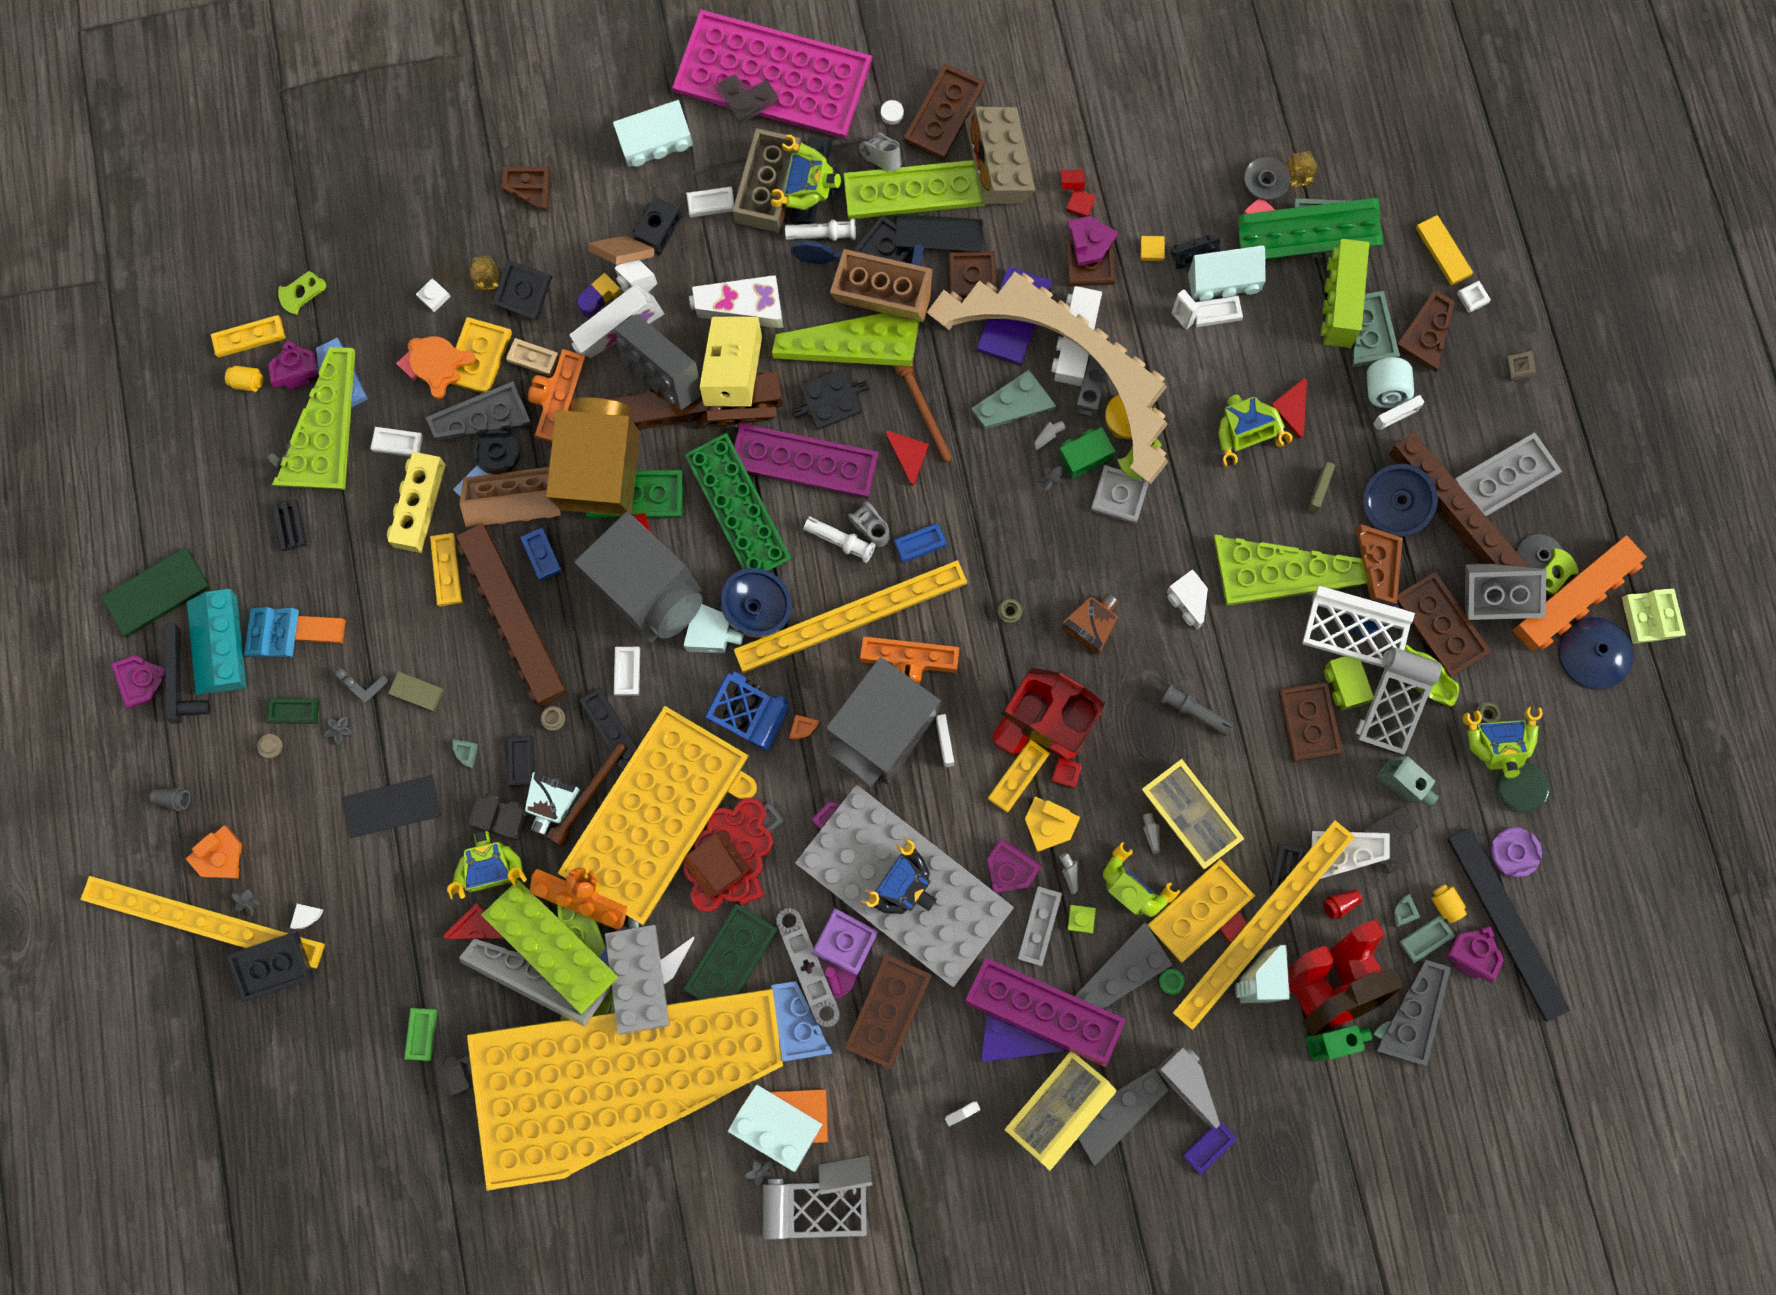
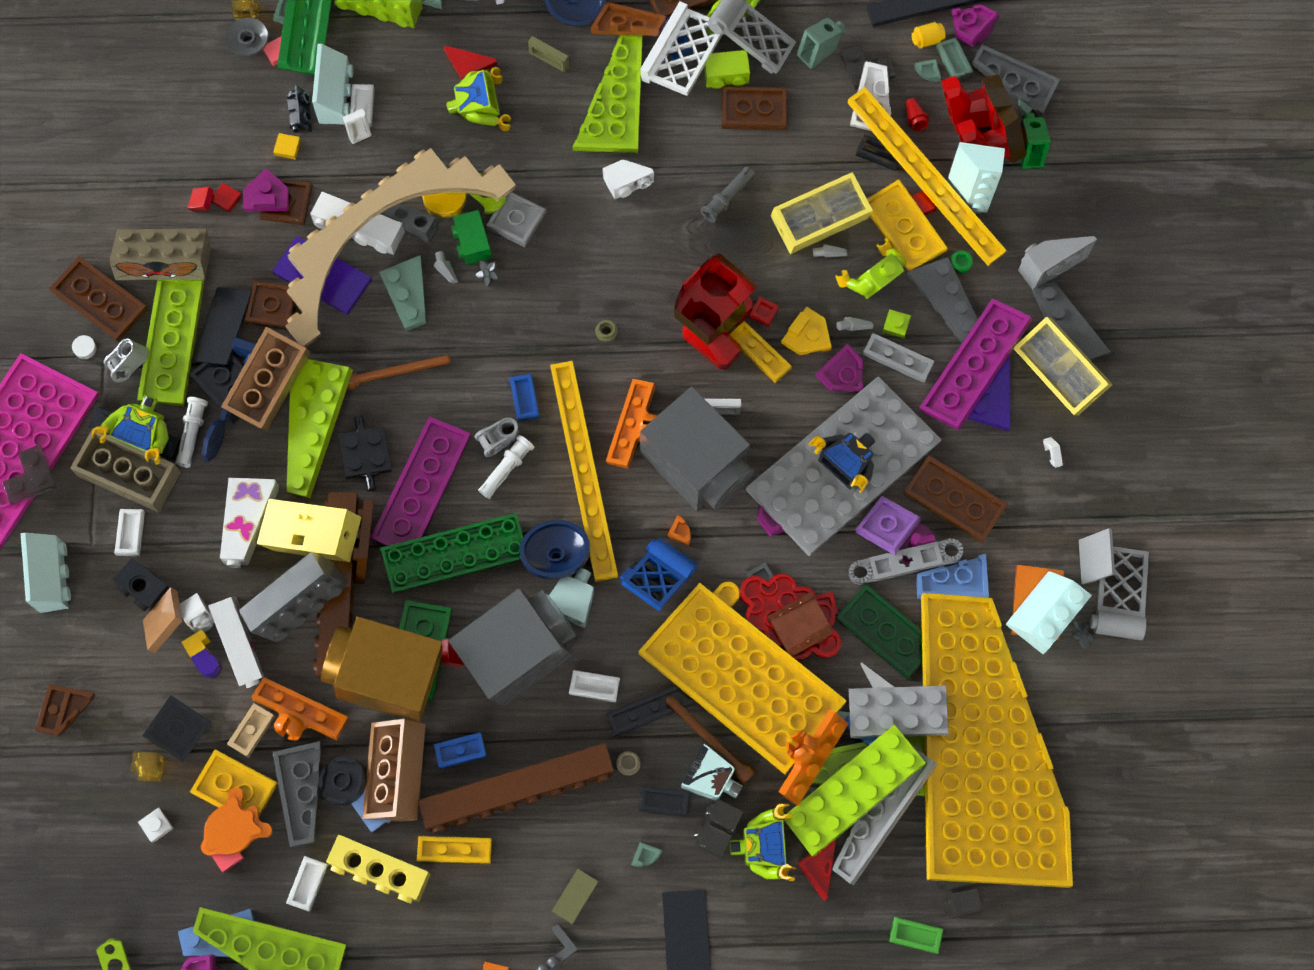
camera: 85 degrees left, 5 degrees down
(909, 454) = (436, 391): red tile -> none
(1092, 622) = (633, 261): dark orange torso -> none
(1209, 1148) = (1106, 261): dark purple tile -> none

